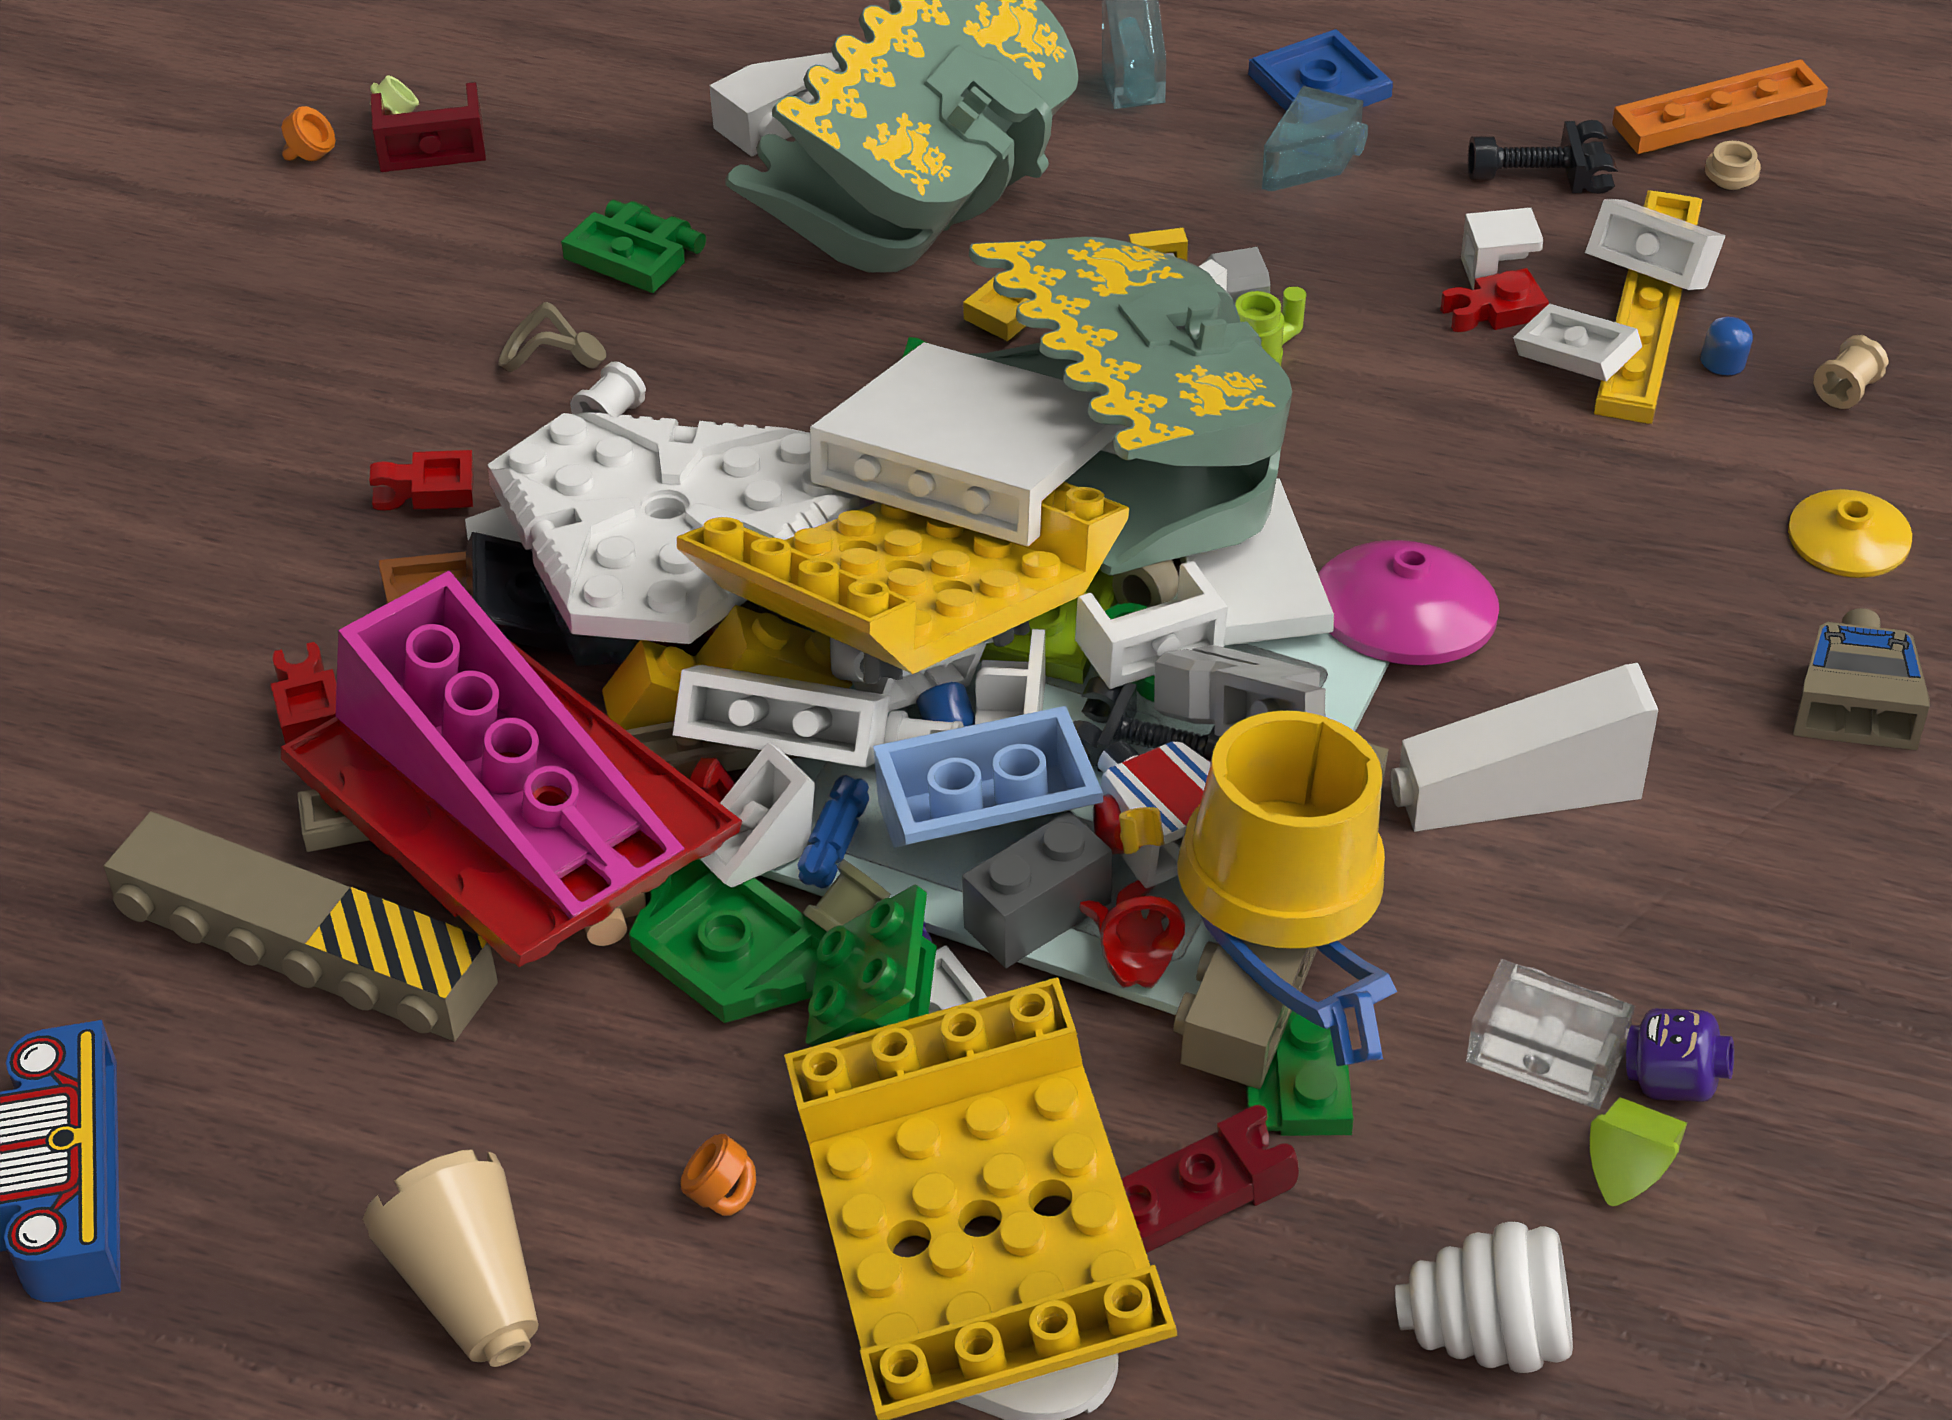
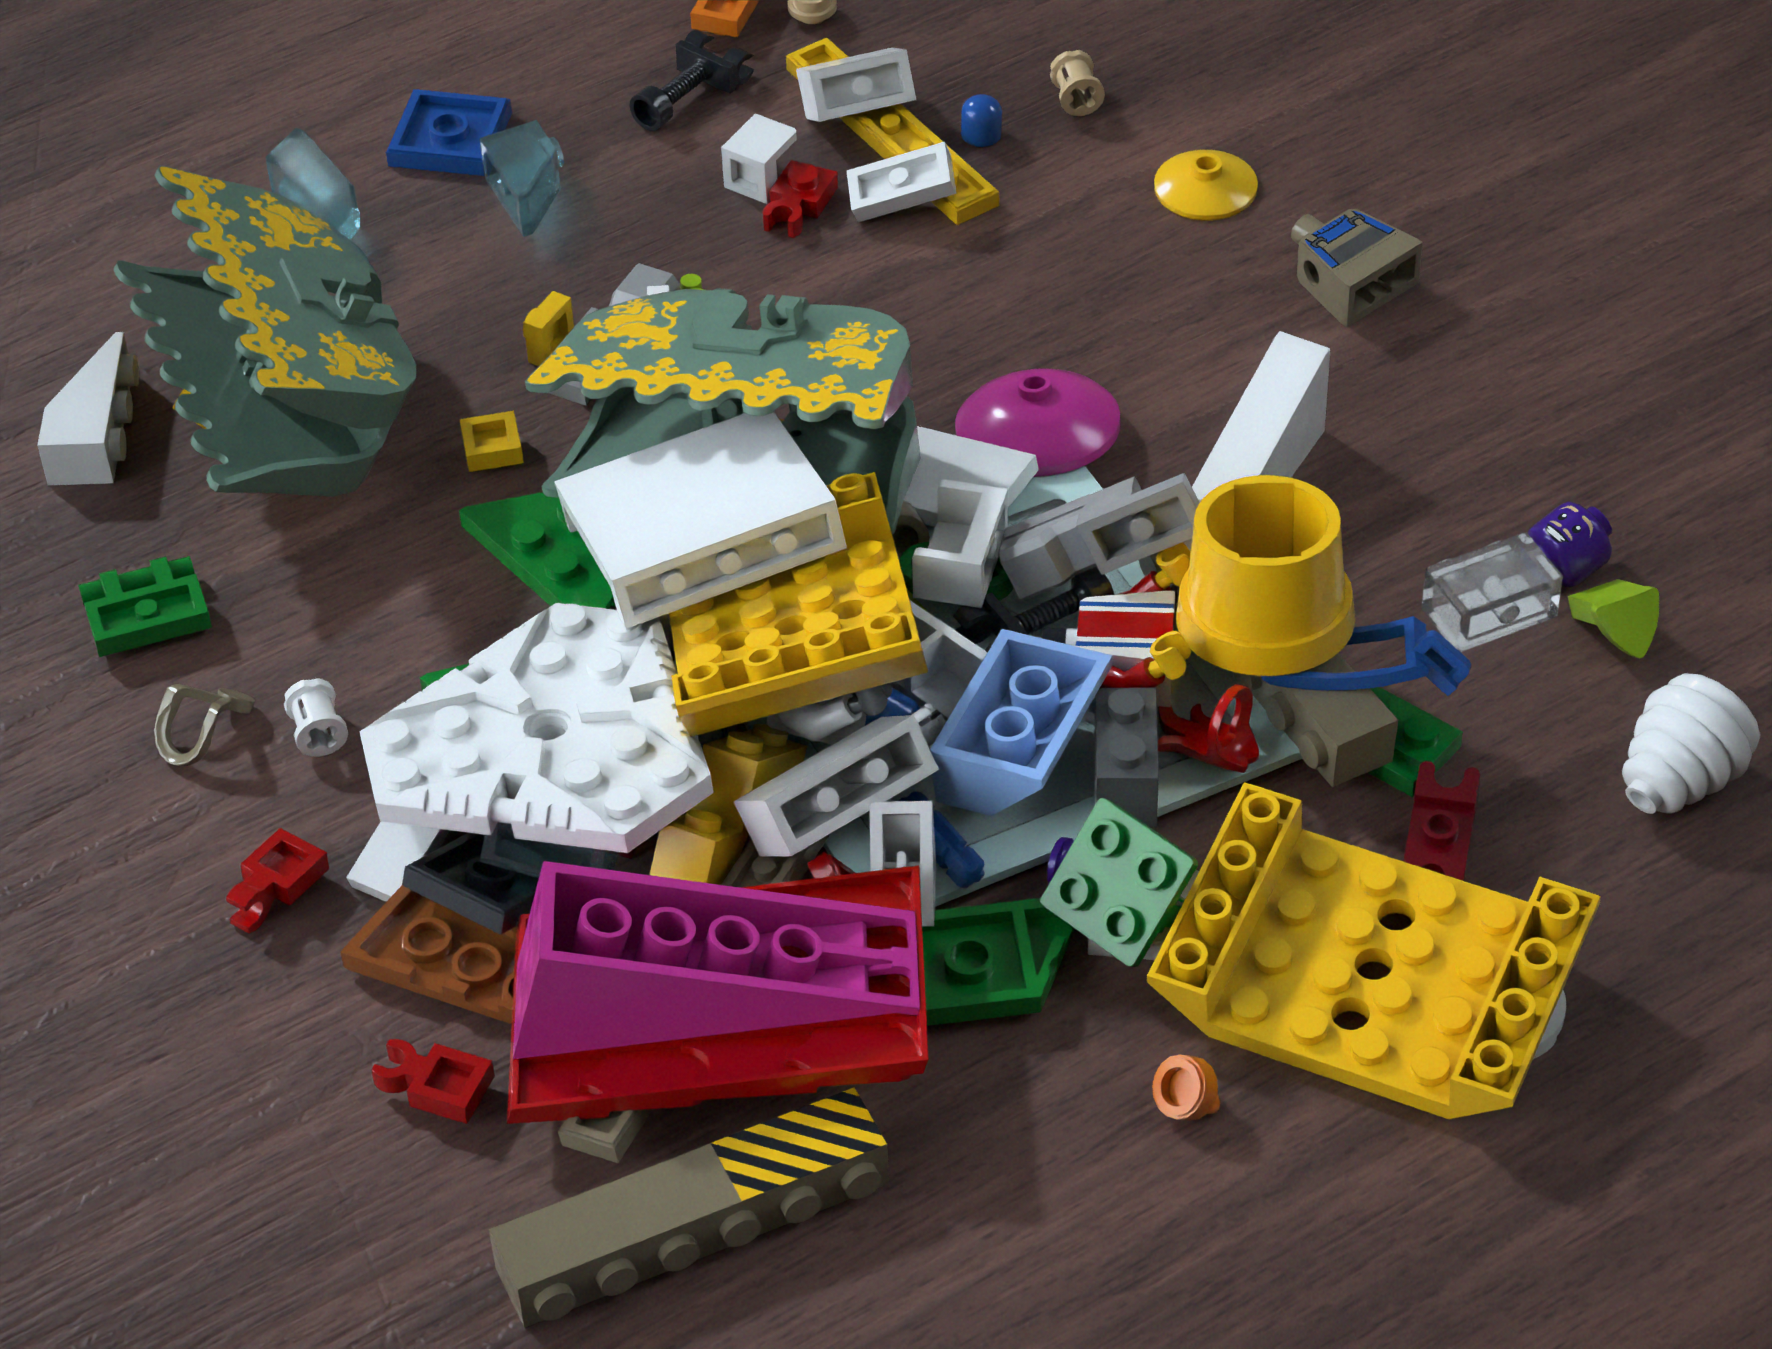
camera: 50 degrees left, 0 degrees up
(460, 1252) = (1140, 1268): tan cone -> none
(846, 898) = (1018, 867): olive bush -> none

